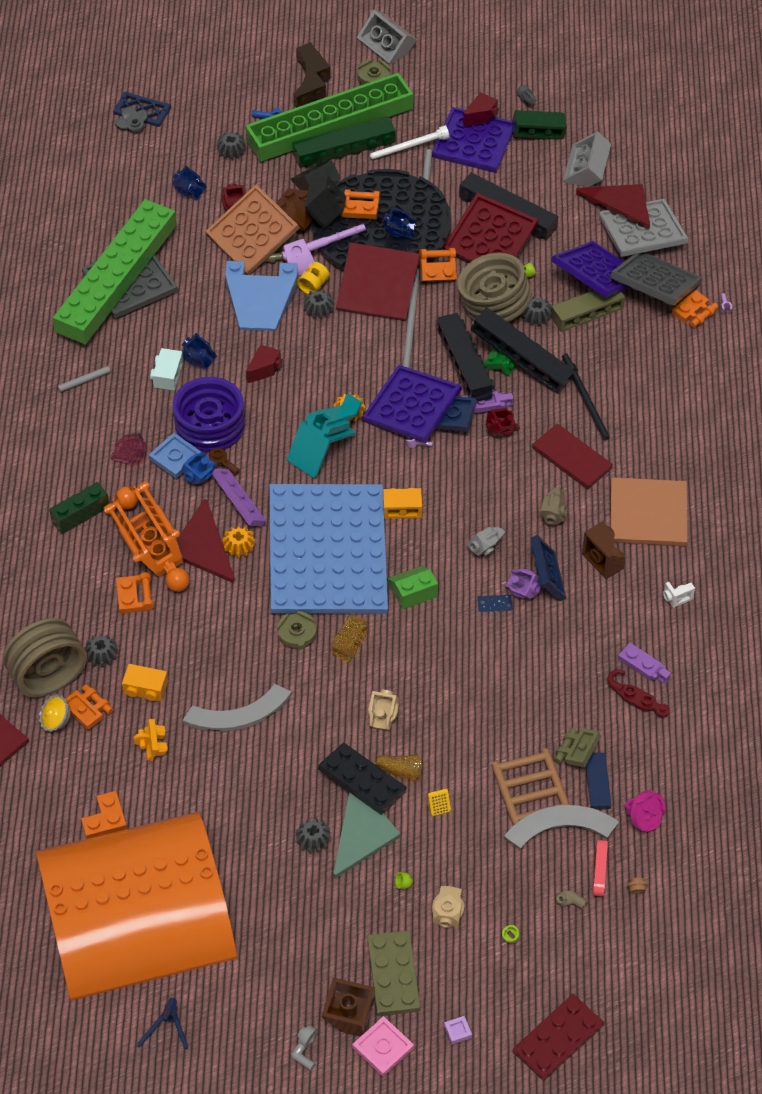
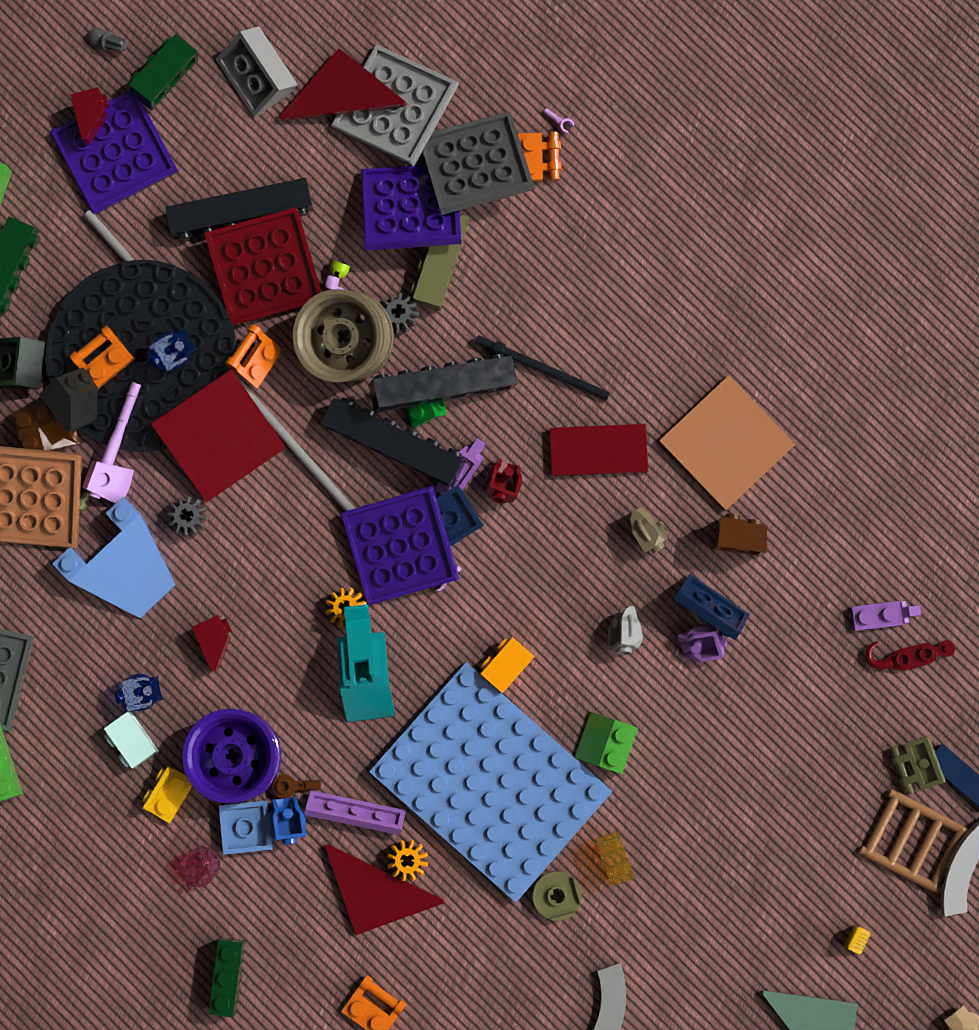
camera: 45 degrees left, 30 degrees up
(85, 378) = (62, 829): light grey bar -> none
(144, 548) = (326, 960): orange piece -> none
(154, 407) = (168, 794): none -> yellow bracket
(313, 277) = (152, 501): yellow wheel -> none
(362, 778) = (771, 985): black plate -> none
(383, 709) = (718, 899): tan hand -> none
(402, 766) = (793, 936): clear yellow piece -> none
(441, 133) = (80, 183): white piece -> none
(495, 603) = (692, 683): dark blue sticker -> none
(679, 595) = (846, 508): white bracket -> none

